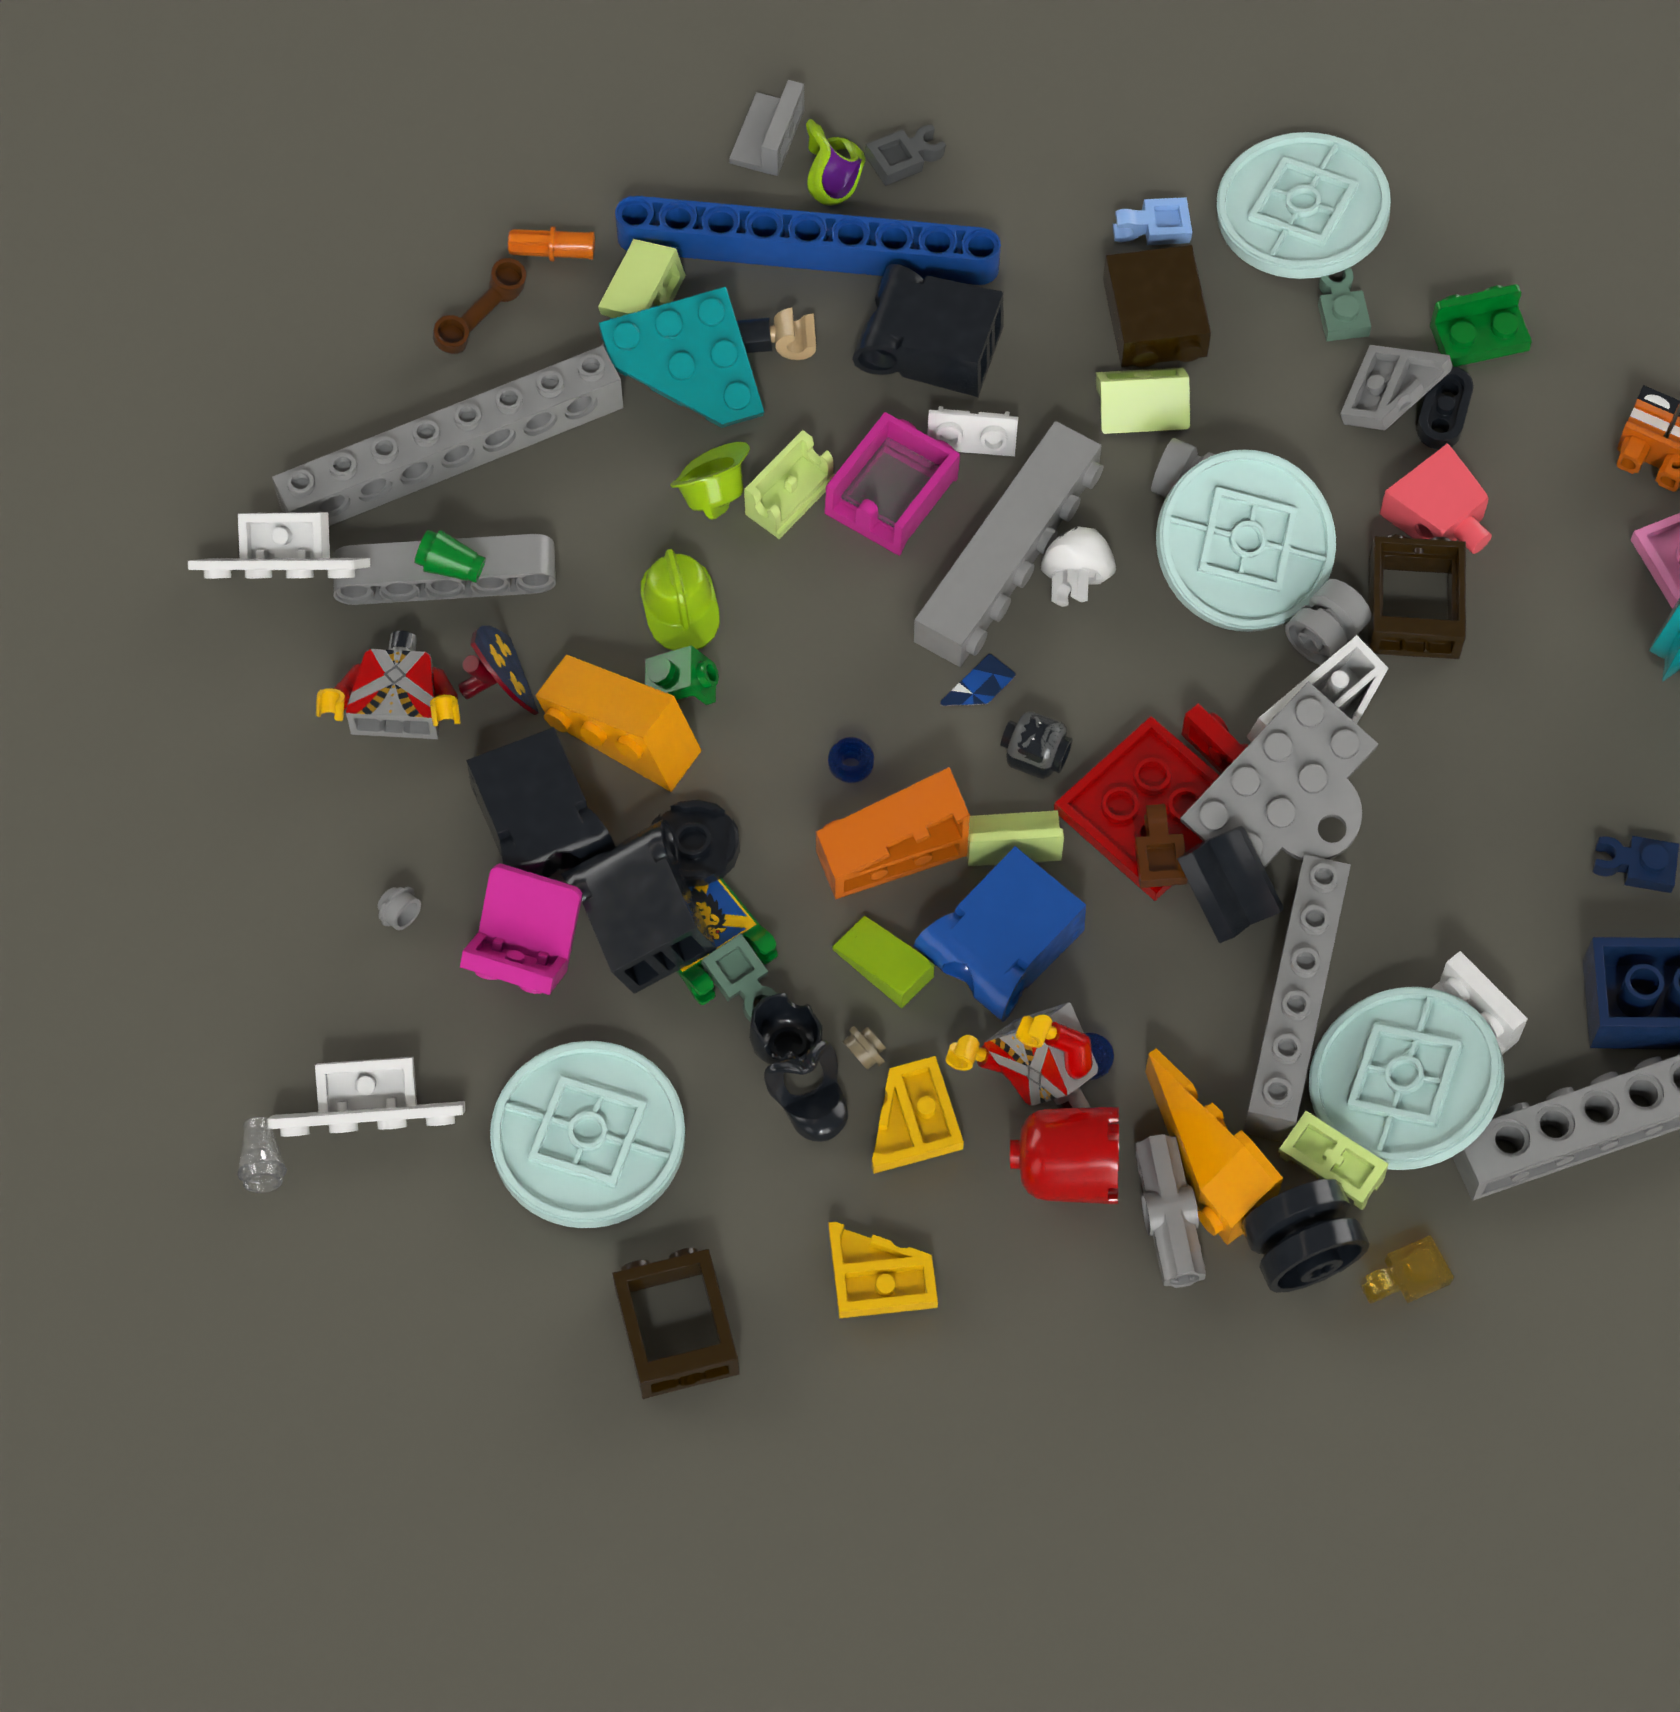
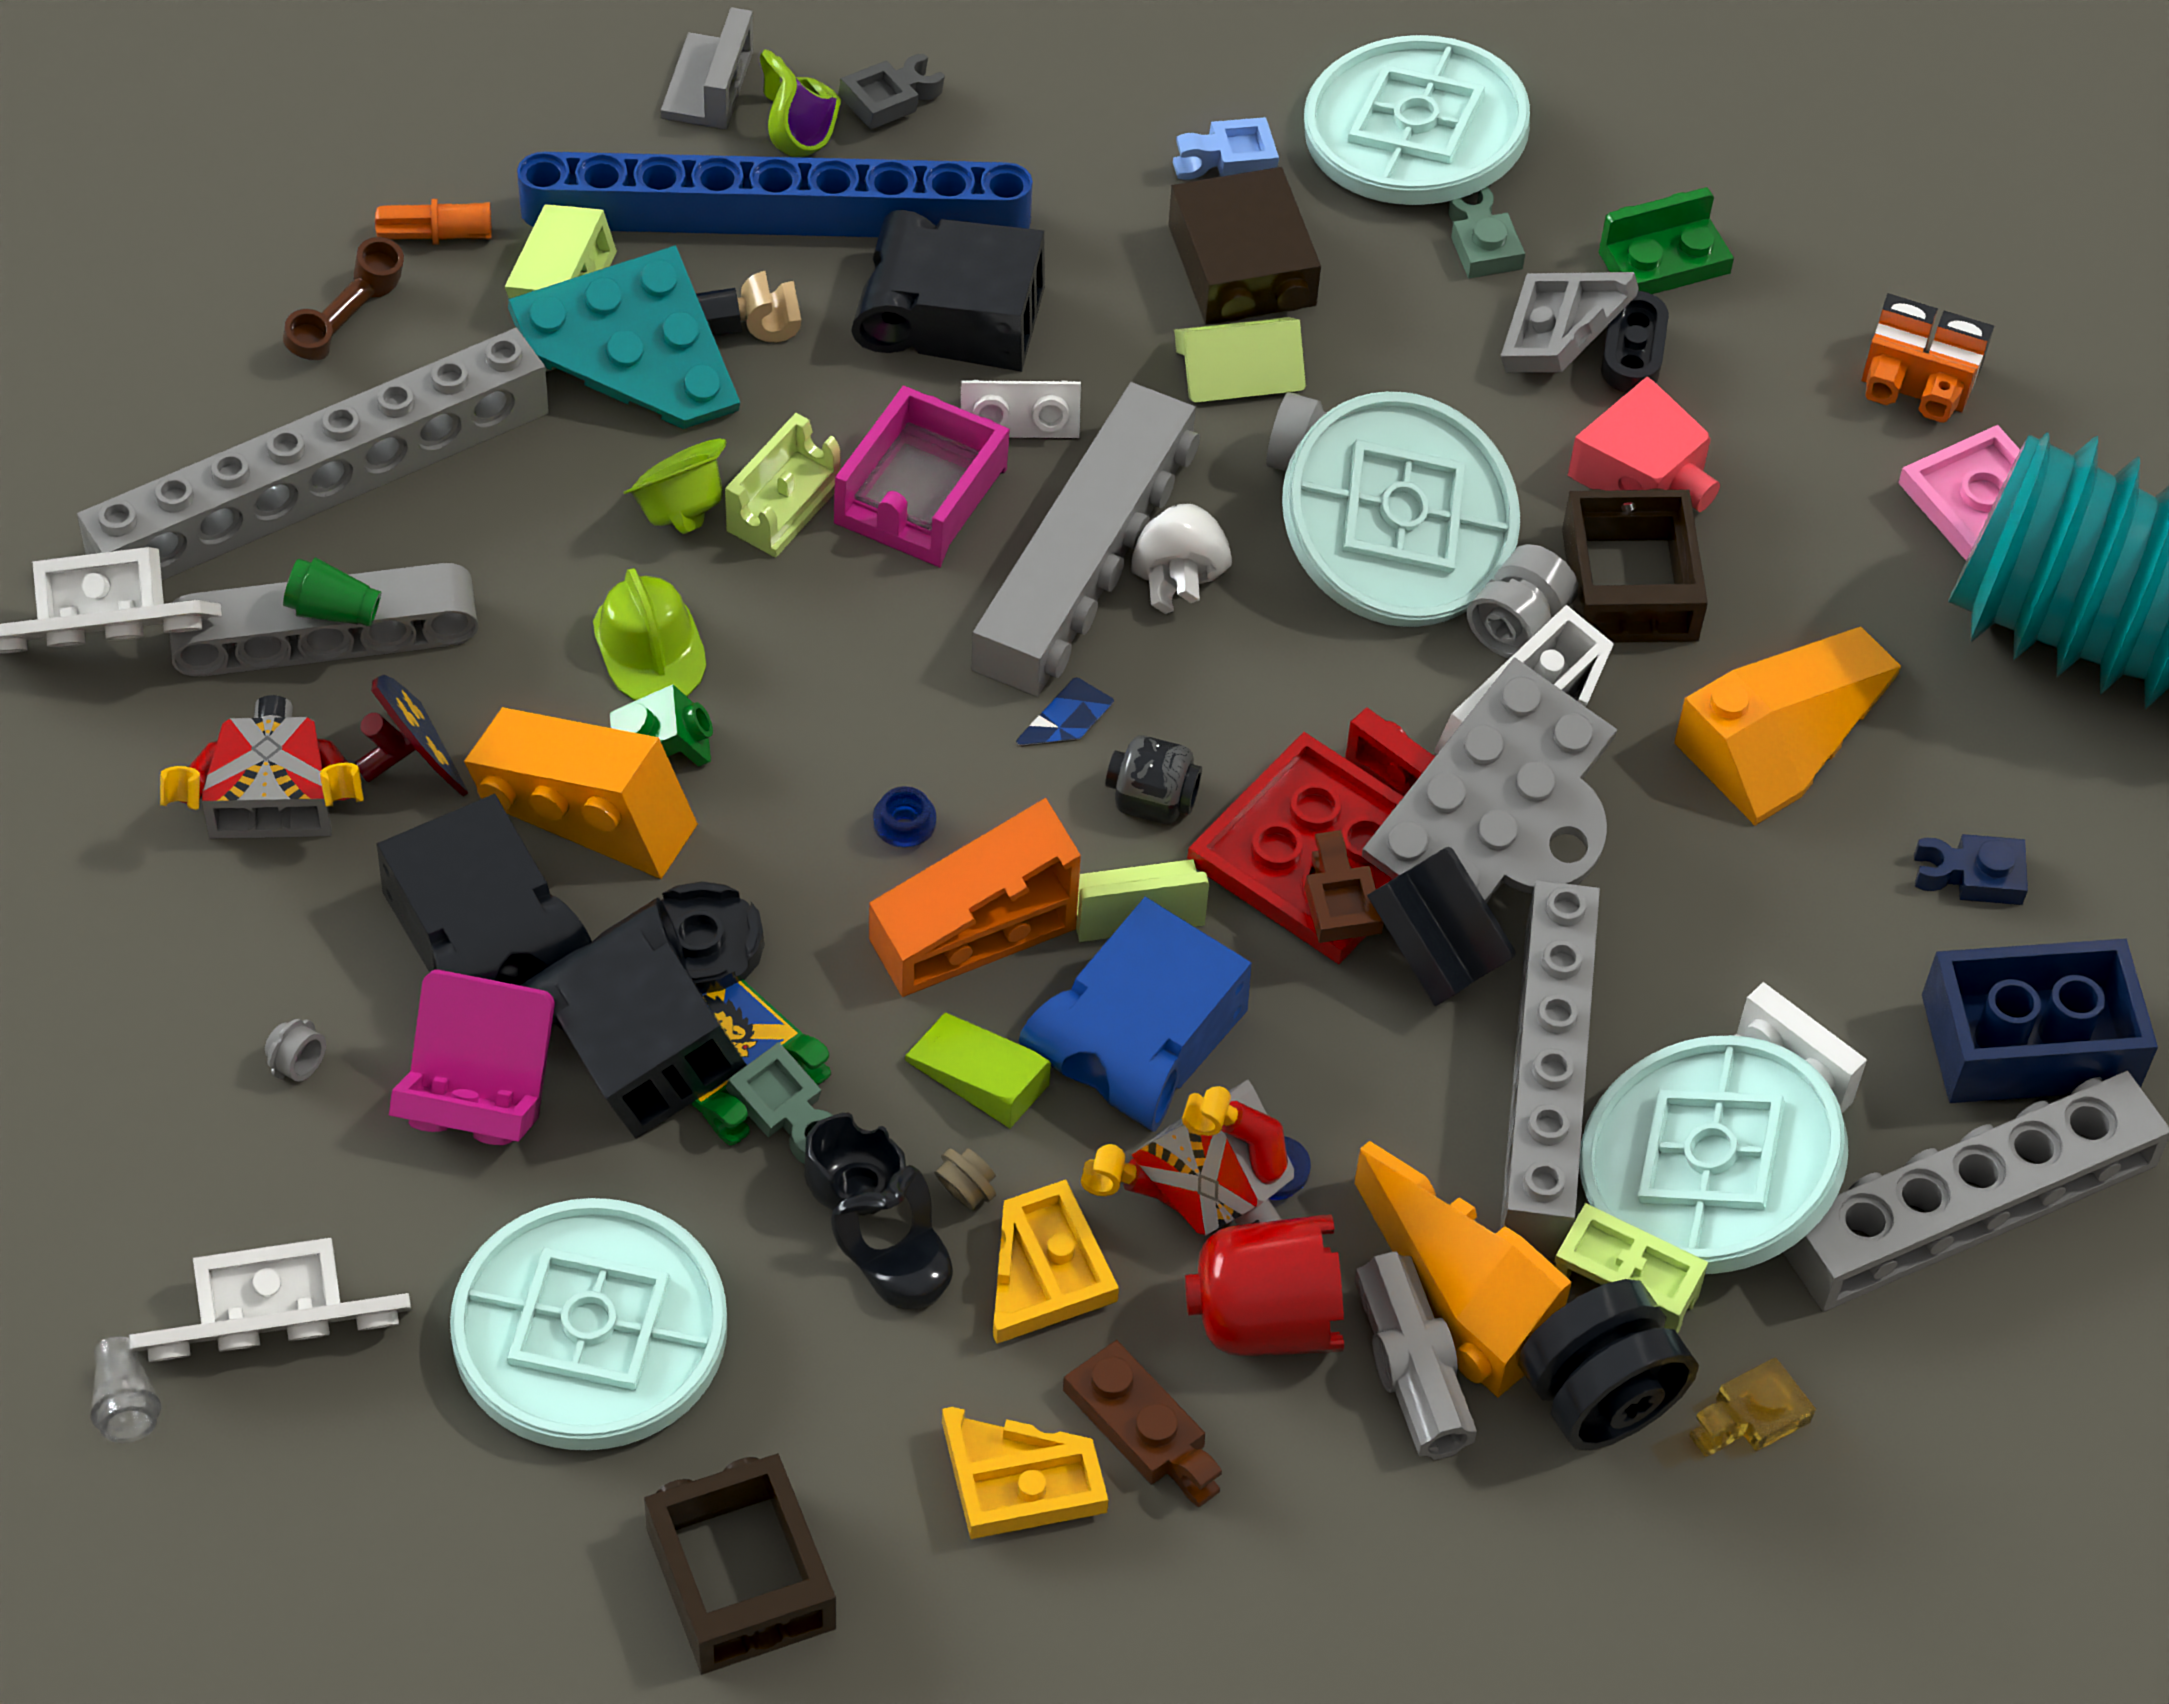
camera: 10 degrees left, 10 degrees down
(970, 1241) = (1143, 1422): none -> reddish brown plate
(1510, 731) = (1781, 718): none -> light orange wedge

